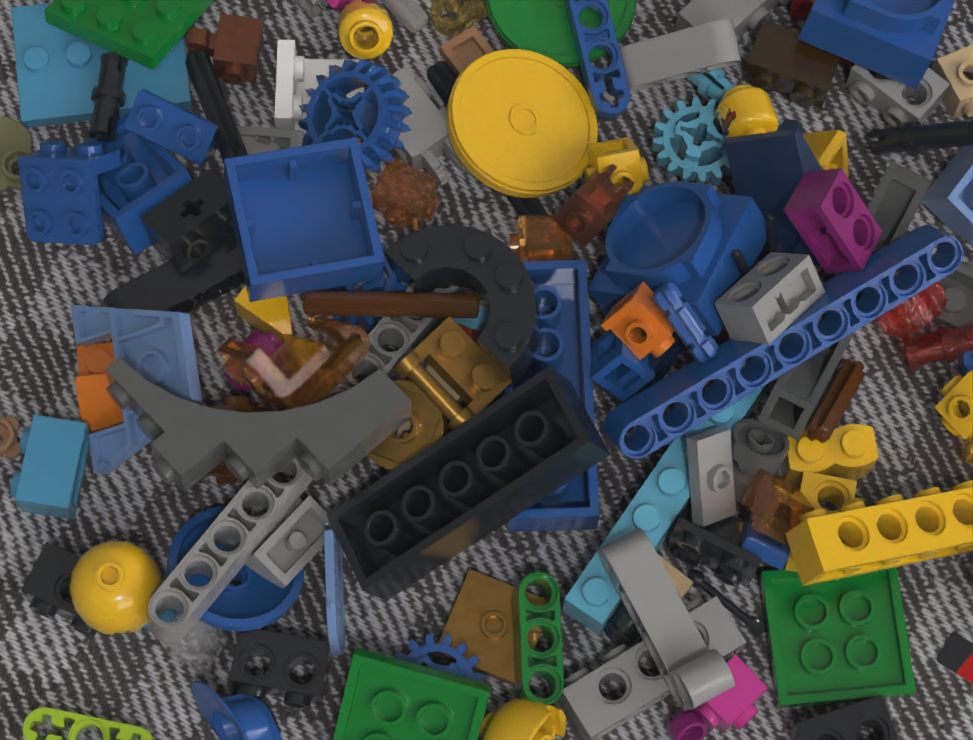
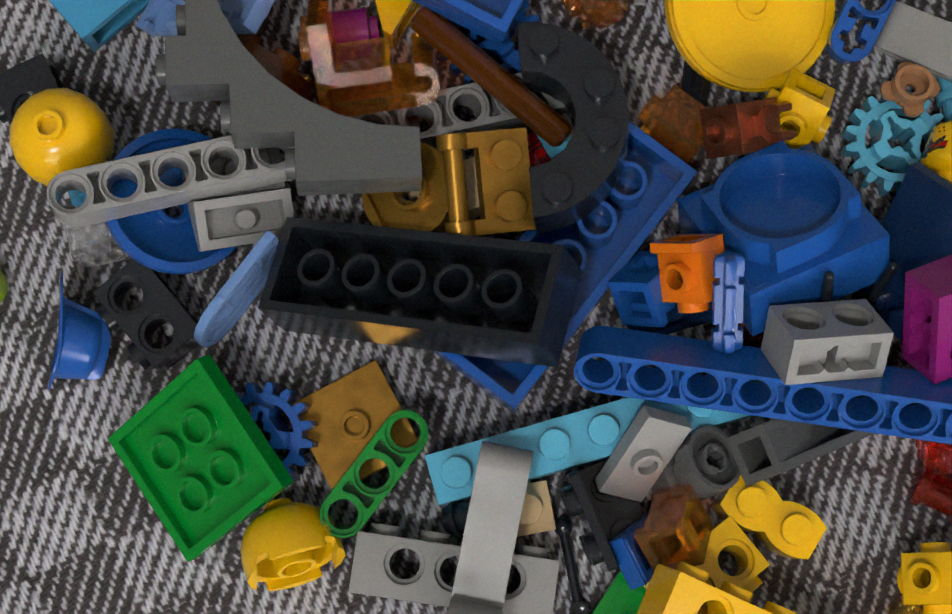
camera: 45 degrees right, 10 degrees up
(678, 87) = (916, 77): none -> medium nougat plate
(835, 401) = (813, 476): reddish brown axle -> none

